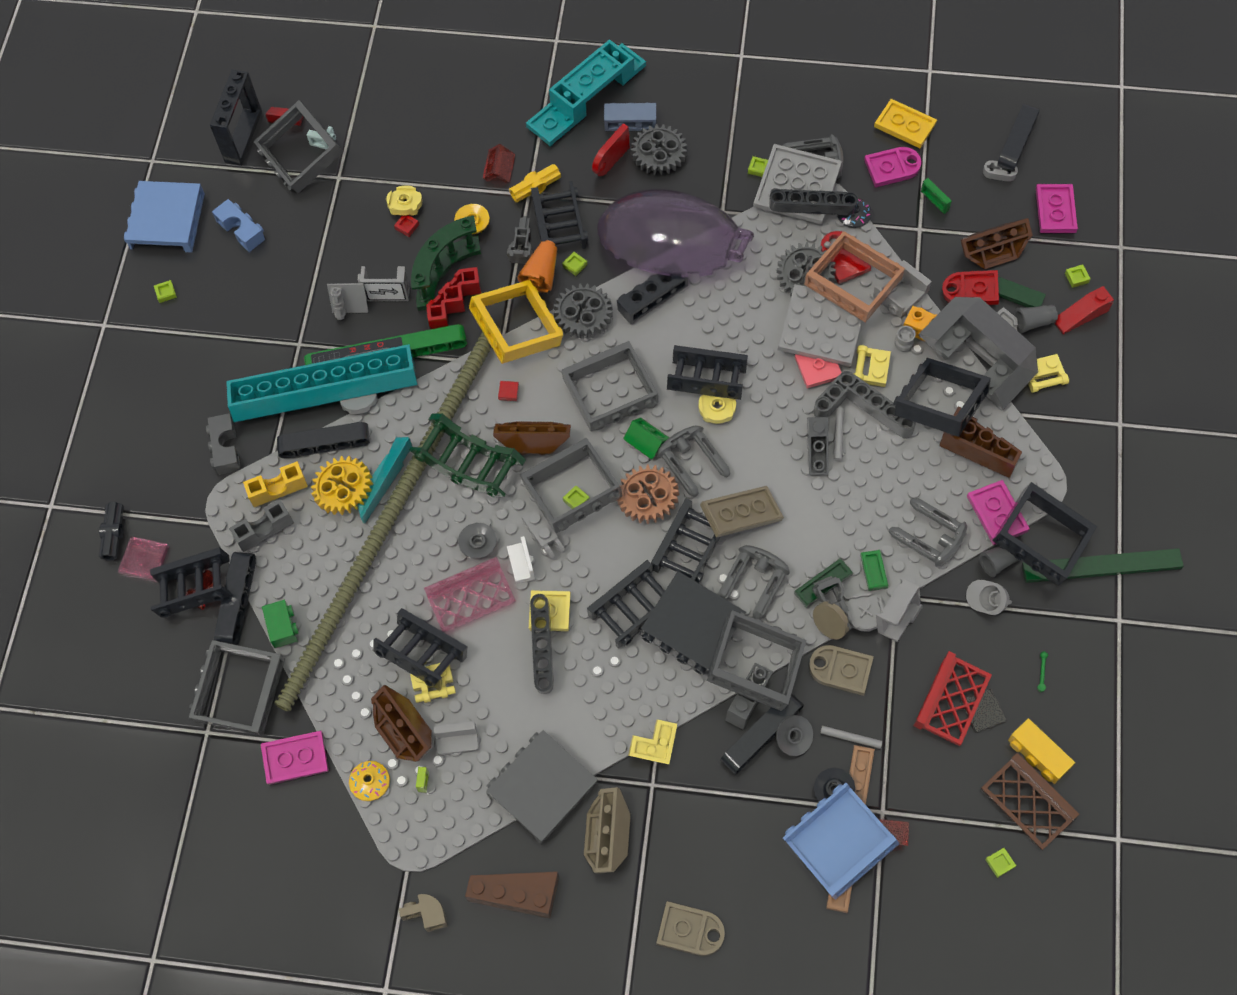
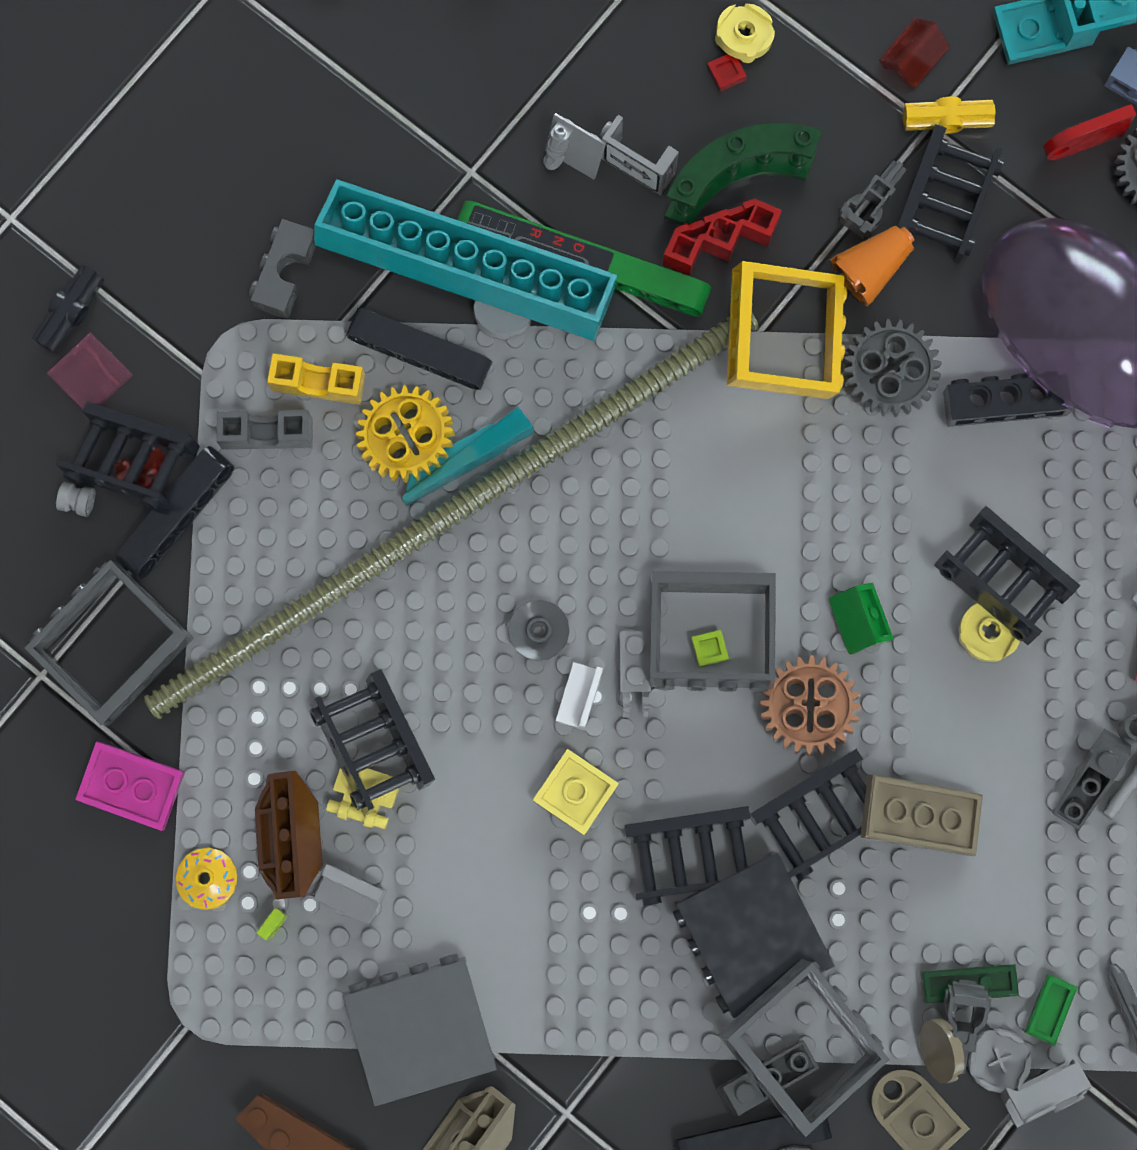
camera: 30 degrees right, 15 degrees up
(173, 625) = (78, 499): none -> light grey wheel
(280, 624) = (211, 589): green brick -> none
(430, 910) = (185, 1099): dark tan brick -> none
(462, 579) = (483, 675): clear pink fence -> none
(476, 445) = (618, 488): dark green fence -> none
(480, 214) = (826, 108): yellow dish -> none
(508, 391) = (714, 427): red tile -> none
(532, 436) = (705, 520): reddish brown wedge -> none
(538, 634) = (527, 851): black beam -> none
(574, 263) = (928, 279): lime tile -> none
(599, 362) = (869, 463): dark grey window -> none
(657, 748) = (603, 1073): light yellow plate -> none
(680, 441) = (903, 653): dark grey piece -> none
(764, 559) = (908, 903): dark grey piece -> none

